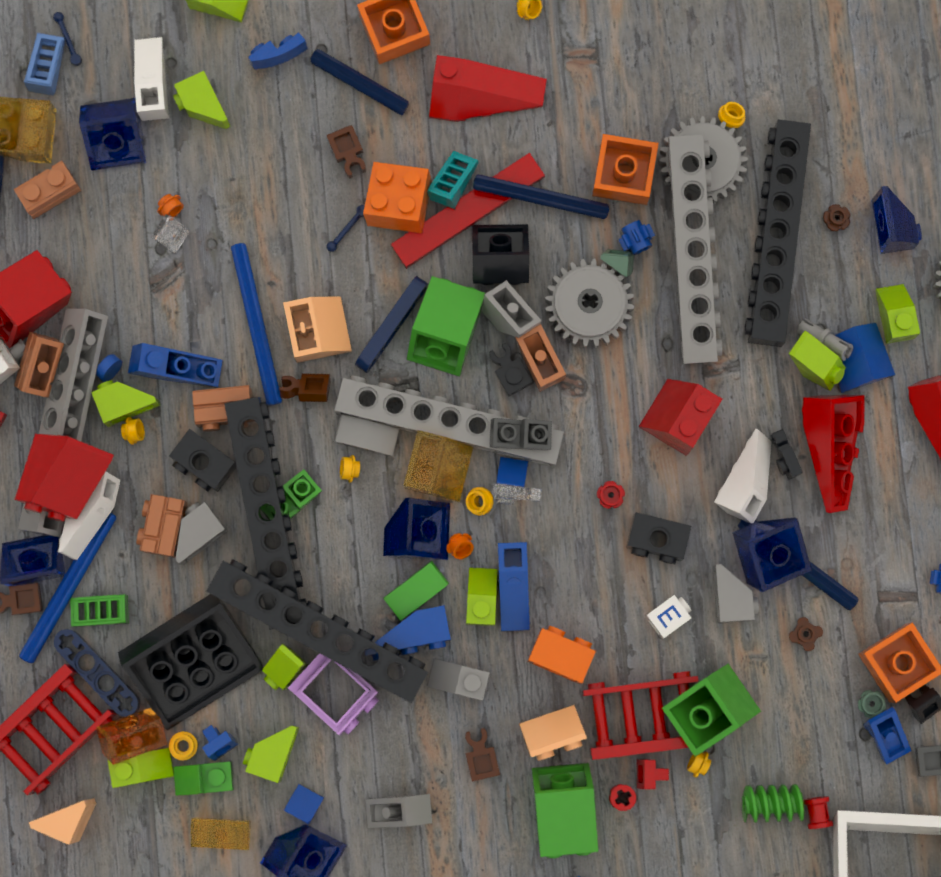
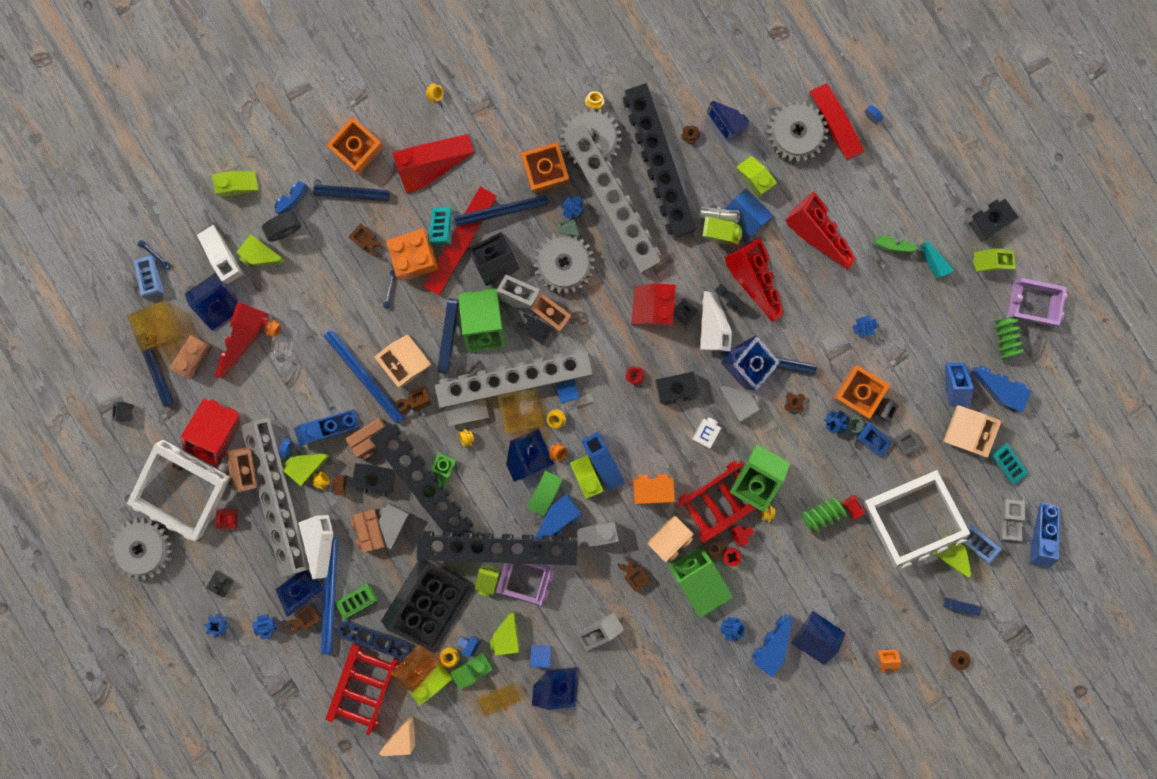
camera: 25 degrees left, 5 degrees up
(60, 475) = (290, 533): red slope -> none
(140, 185) = (247, 326): none -> red wedge
(154, 447) = (339, 484): none -> reddish brown plate
(248, 80) = (281, 226): none -> black tyre
(520, 434) = (561, 366): dark grey slope -> none
(595, 774) = (709, 544): none -> reddish brown plate
(717, 444) = (684, 311): none -> black tile
(849, 686) = (836, 421): none -> blue gear

